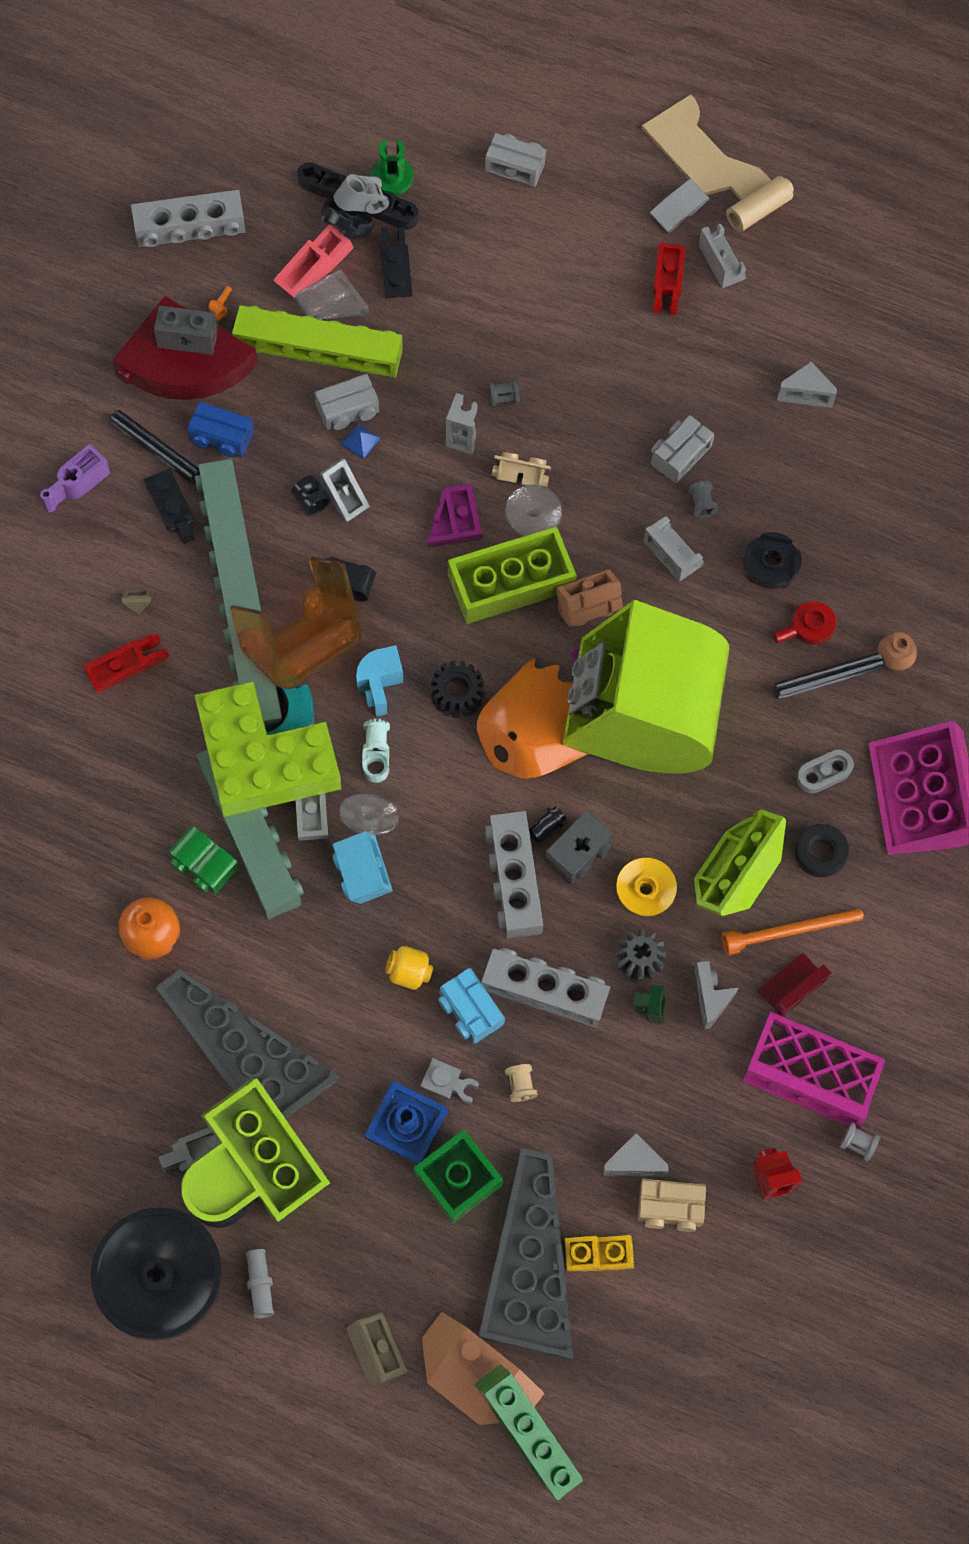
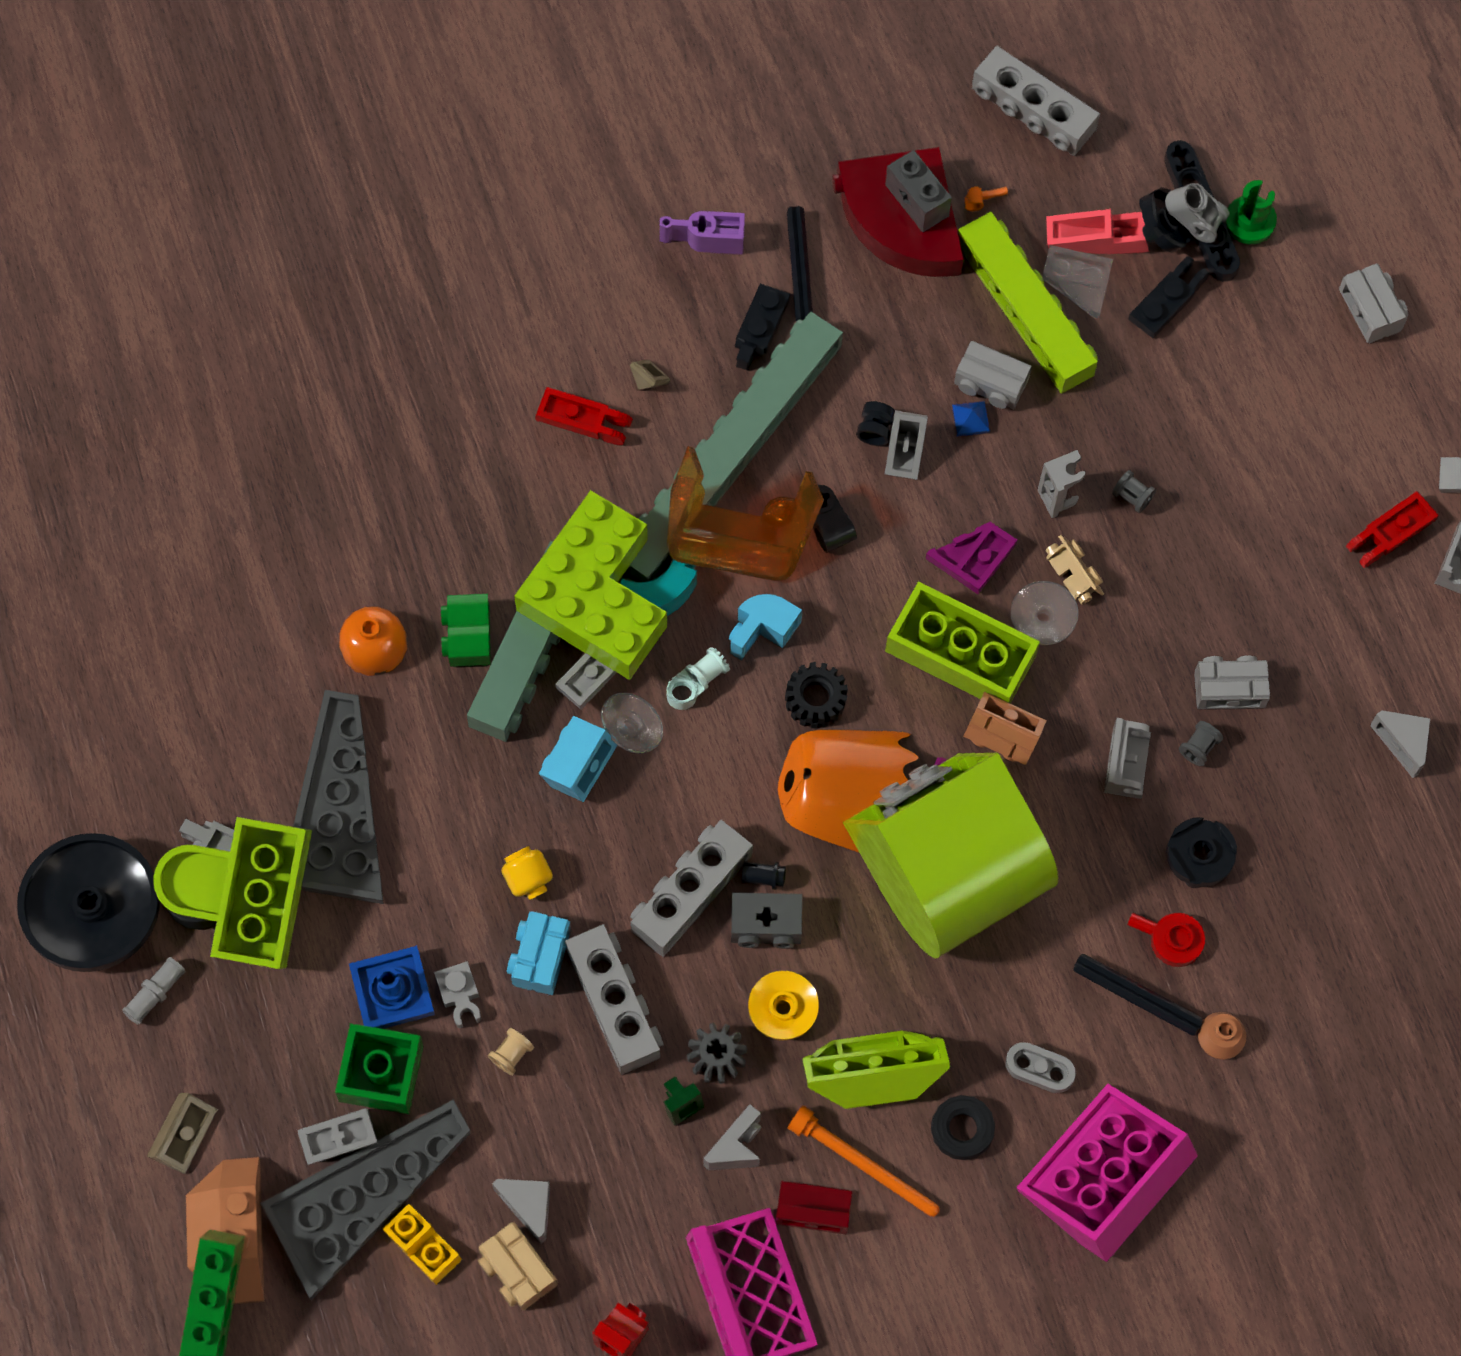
camera: 50 degrees right, 0 degrees up
(220, 430) = (864, 301): blue brick -> none
(477, 1245) = (337, 1136): none -> light grey hinge

